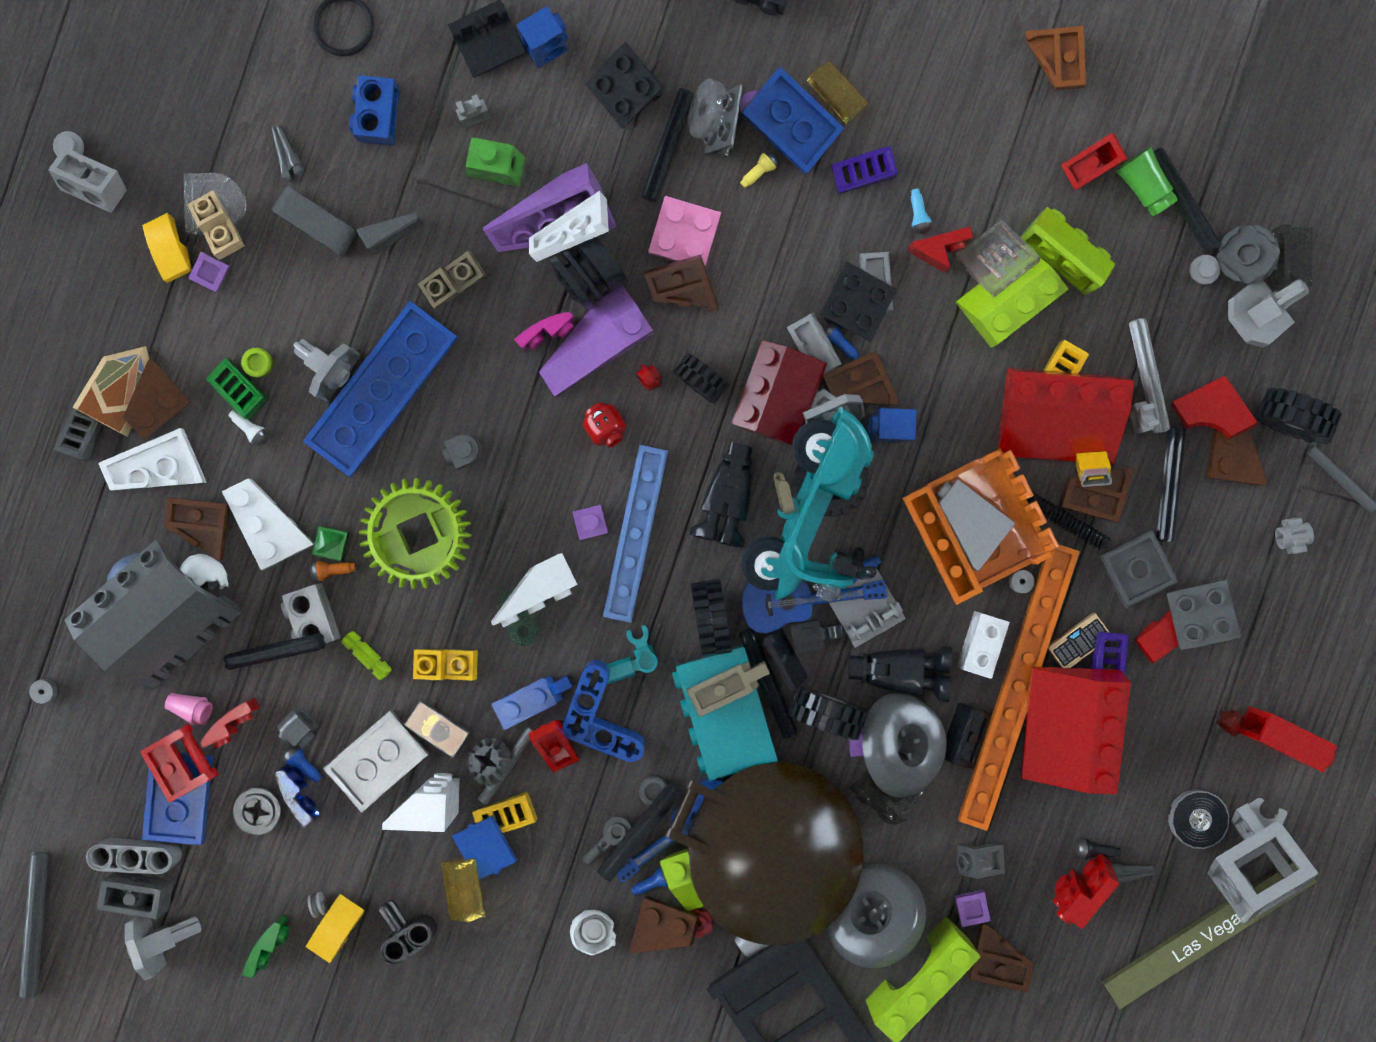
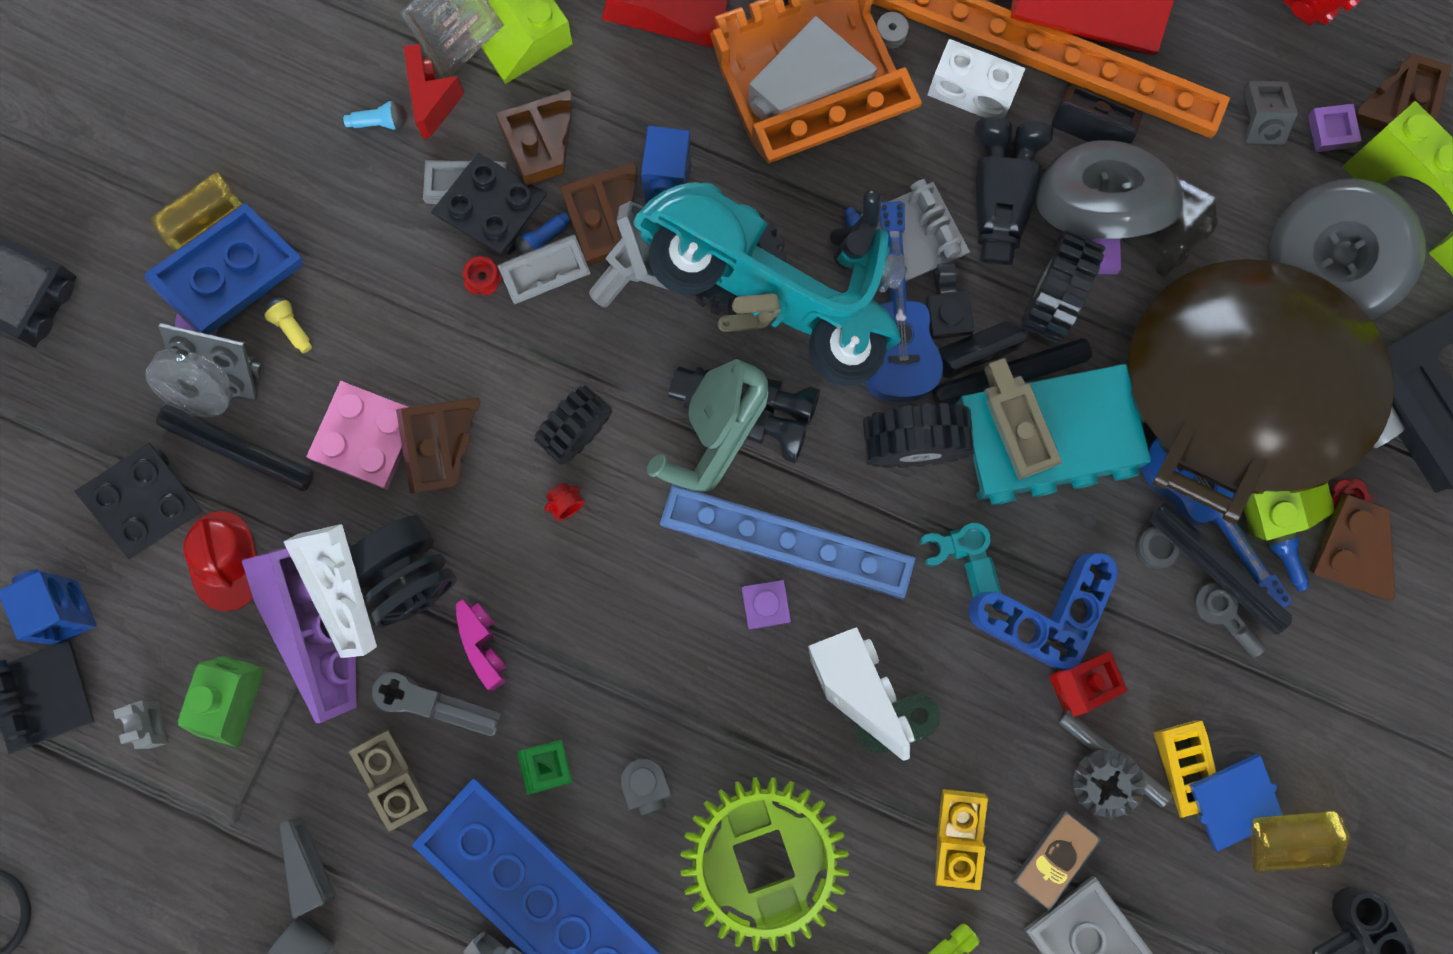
camera: 85 degrees left, 10 degrees down
(382, 110) = (118, 865): blue brick -> none
(429, 807) = (1180, 883): white slope -> none
(468, 382) = (544, 767): none -> green tile
(503, 302) = (434, 704): none -> dark grey connector
(530, 700) = (1020, 714): hinge -> none
(592, 932) = (1365, 650): white hair -> none
(593, 143) = (214, 560): none -> red piece
(600, 337) = (501, 571): medium lavender wedge -> none
(604, 425) = (626, 570): red head -> none
(709, 478) = (720, 424): none -> sand green piece
(778, 392) = (606, 317): dark red slope -> none
(806, 294) = (474, 268): none -> red plate
(861, 160) = (303, 156): dark purple slope -> none
(913, 331) = (538, 136): none -> reddish brown wing

